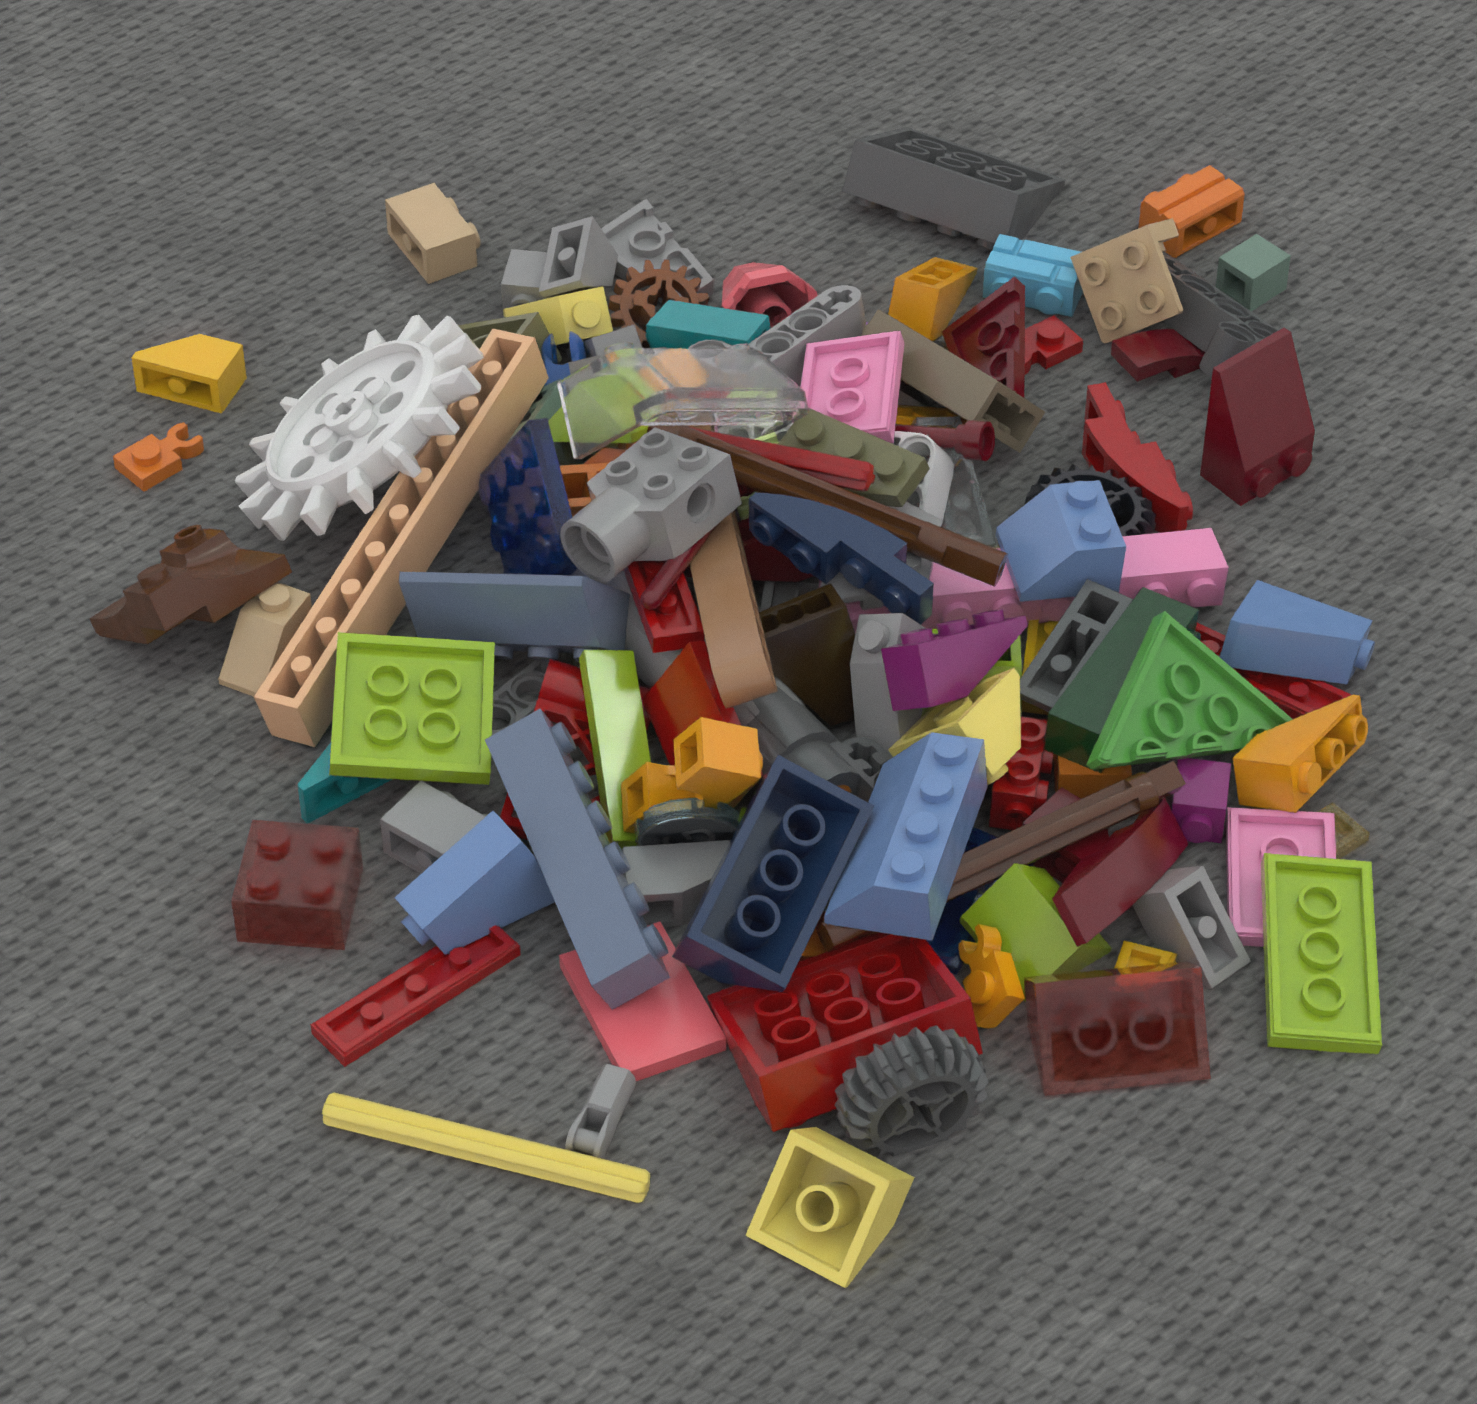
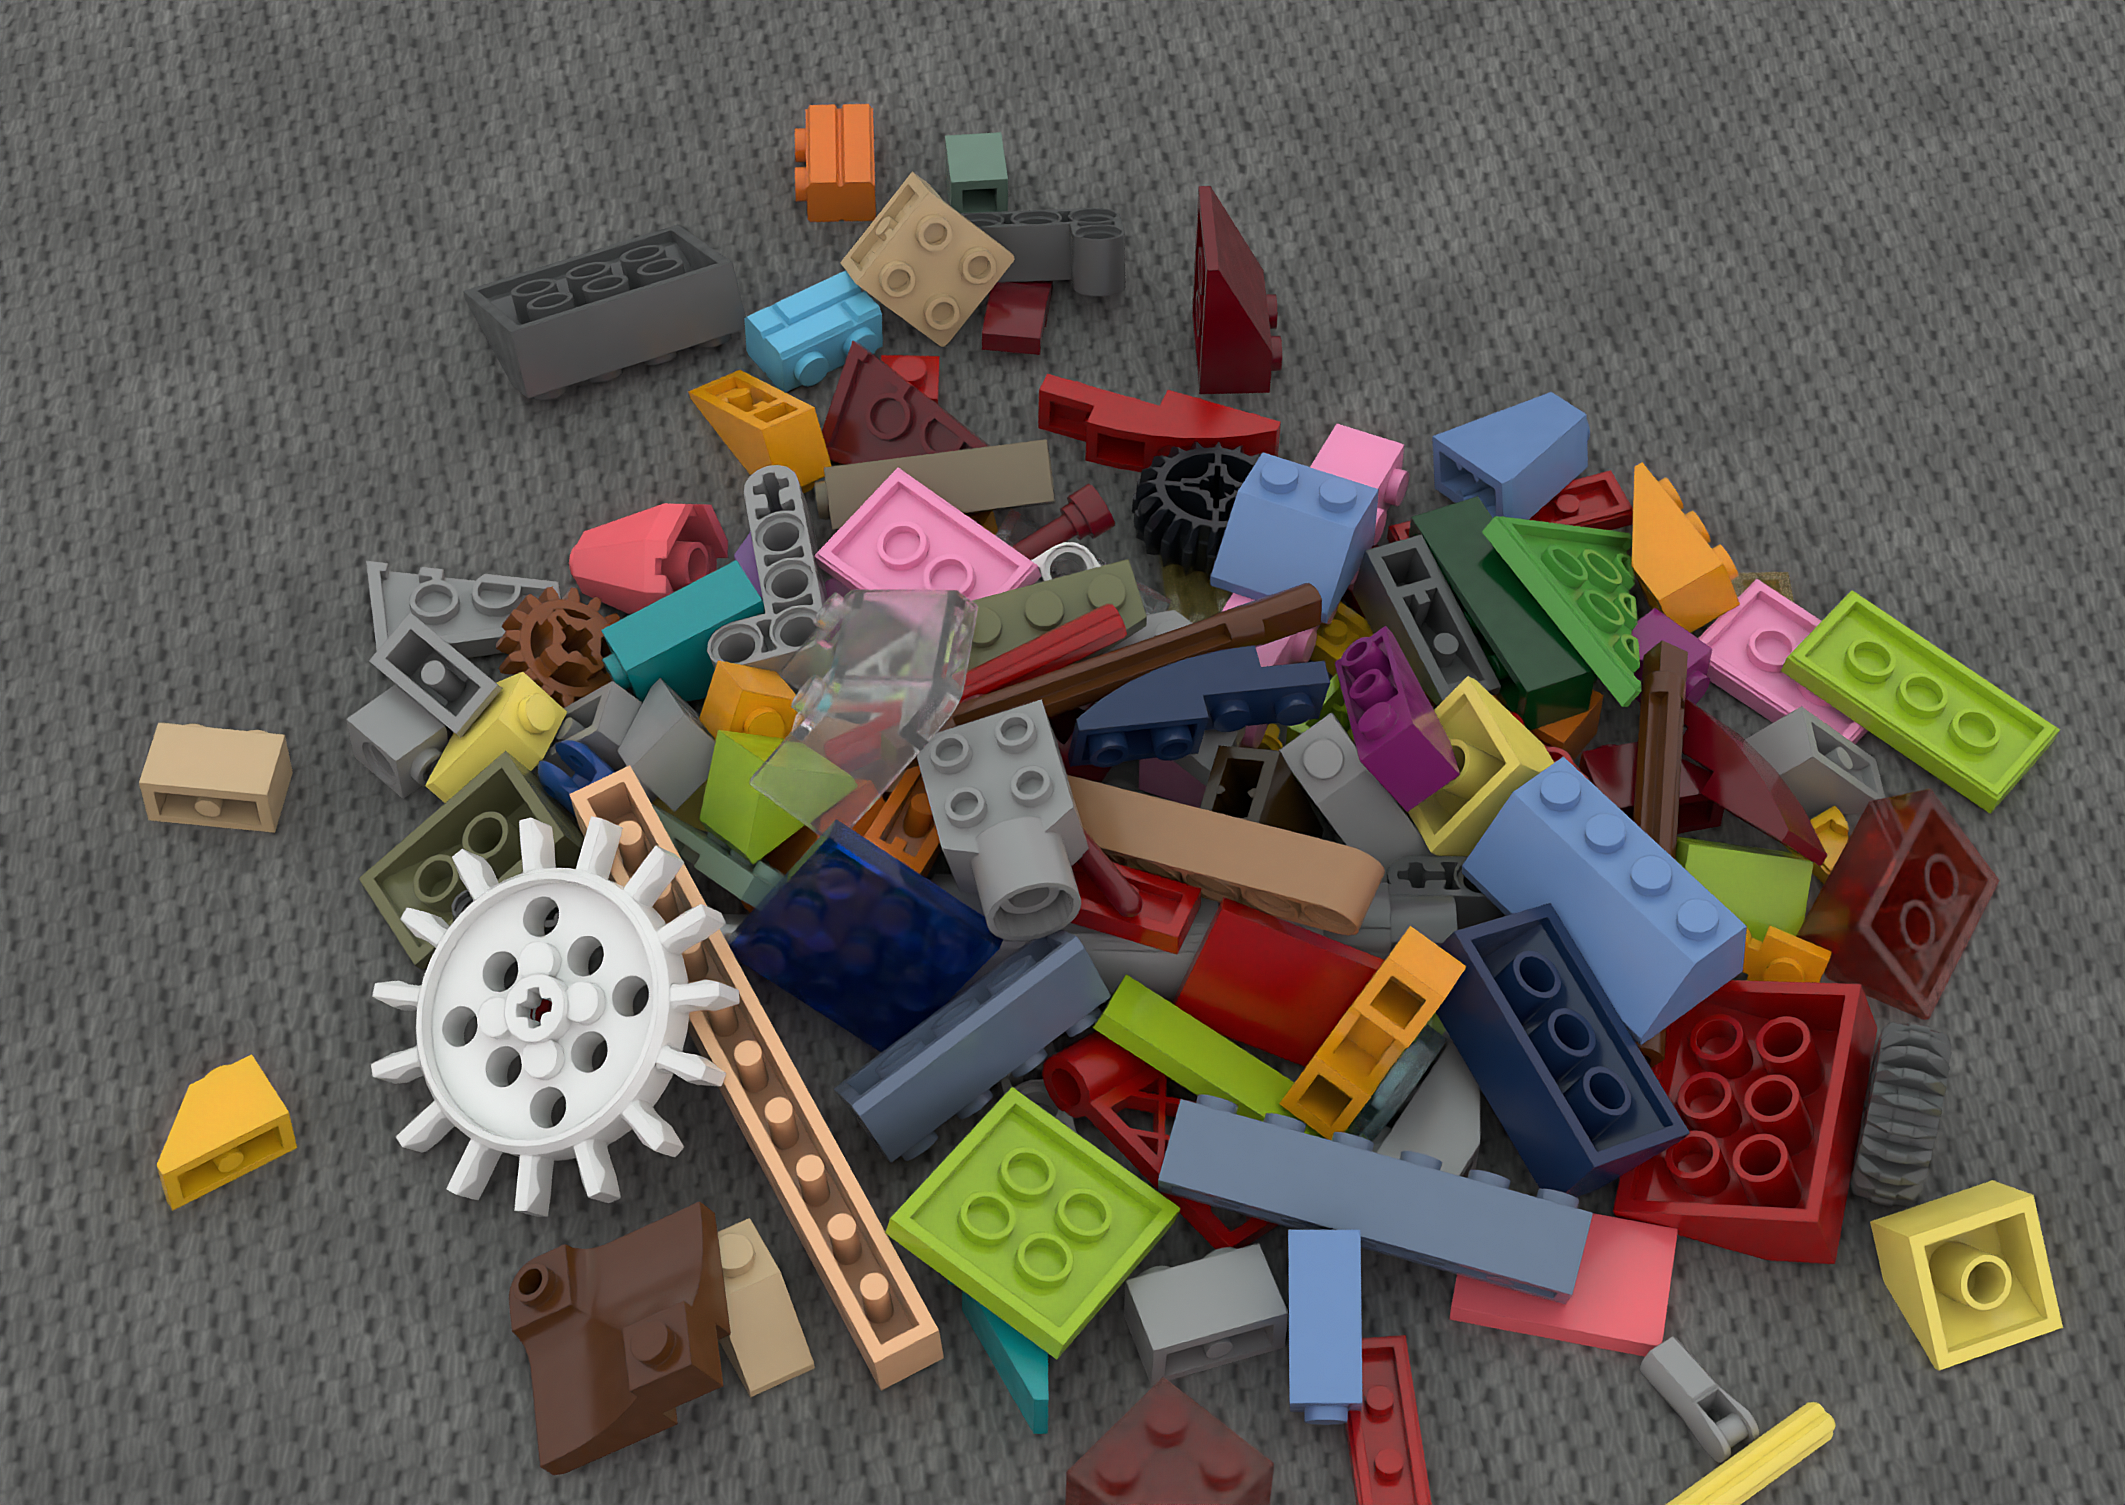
camera: 55 degrees left, 5 degrees up
(154, 459) = (321, 1256): orange plate -> none

